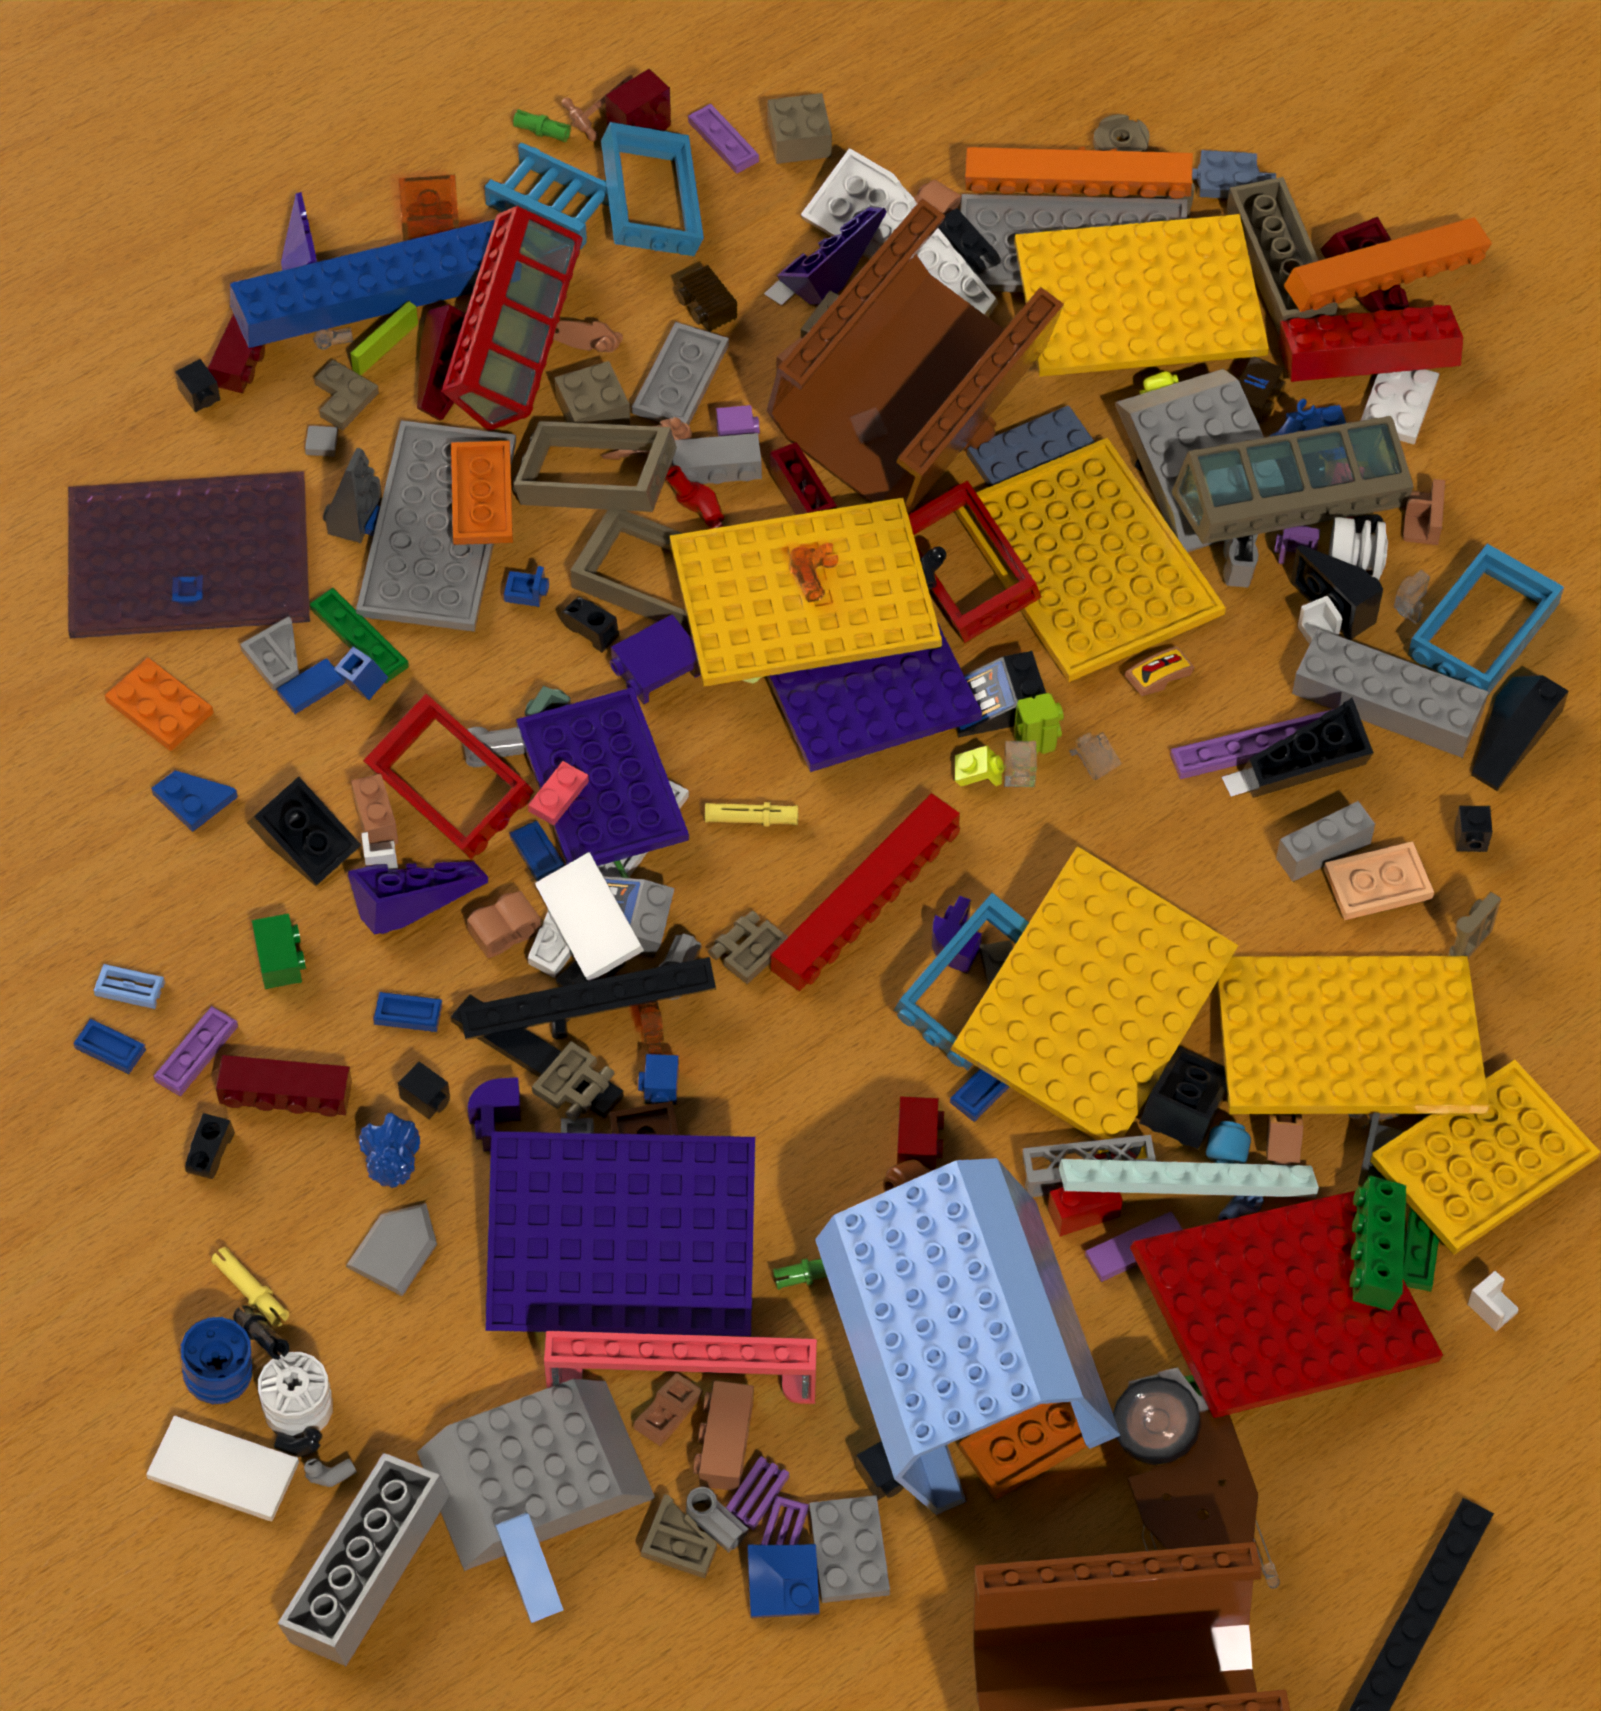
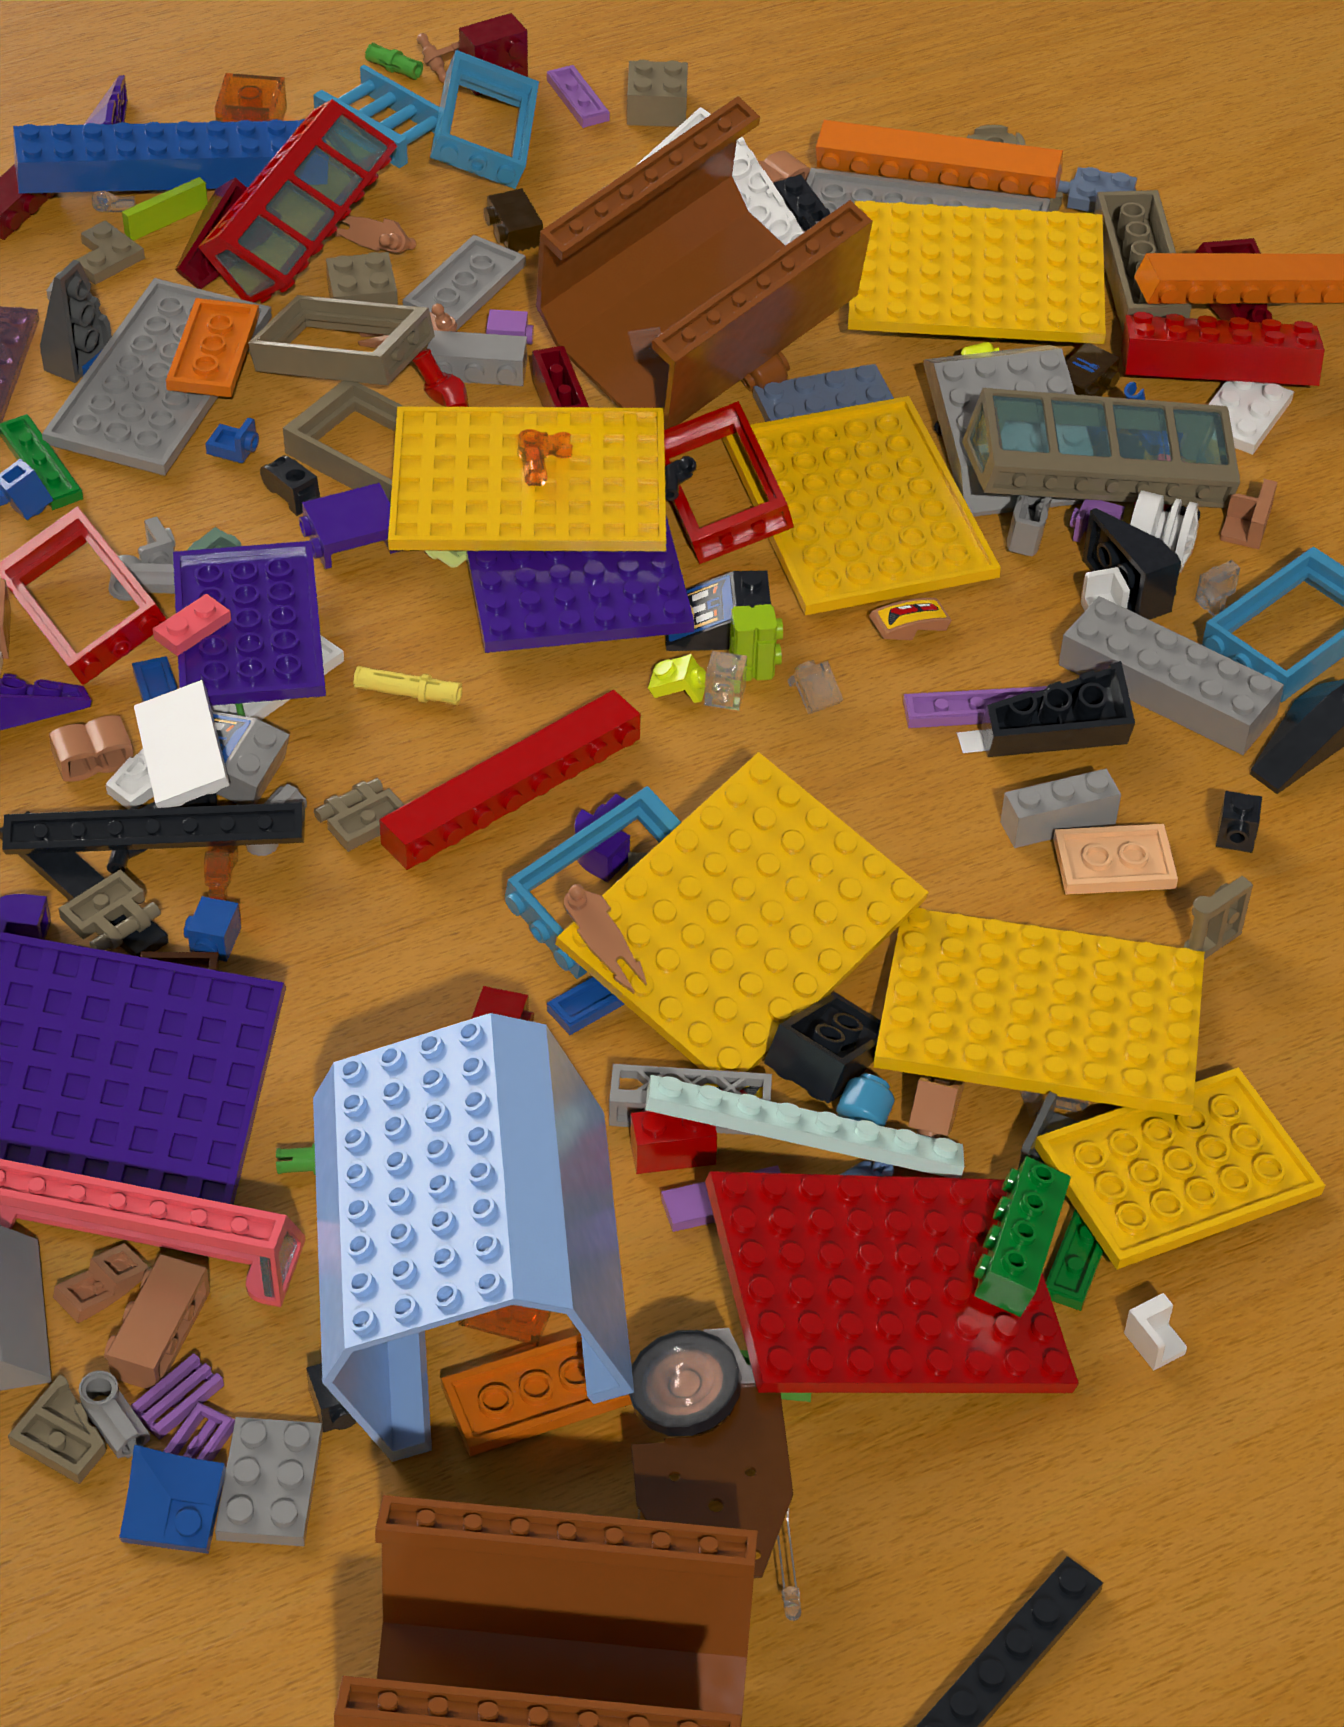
camera: 10 degrees right, 10 degrees down
(497, 707) = (159, 543): none -> light grey bracket
(989, 1038) = (601, 933): none -> nougat piece

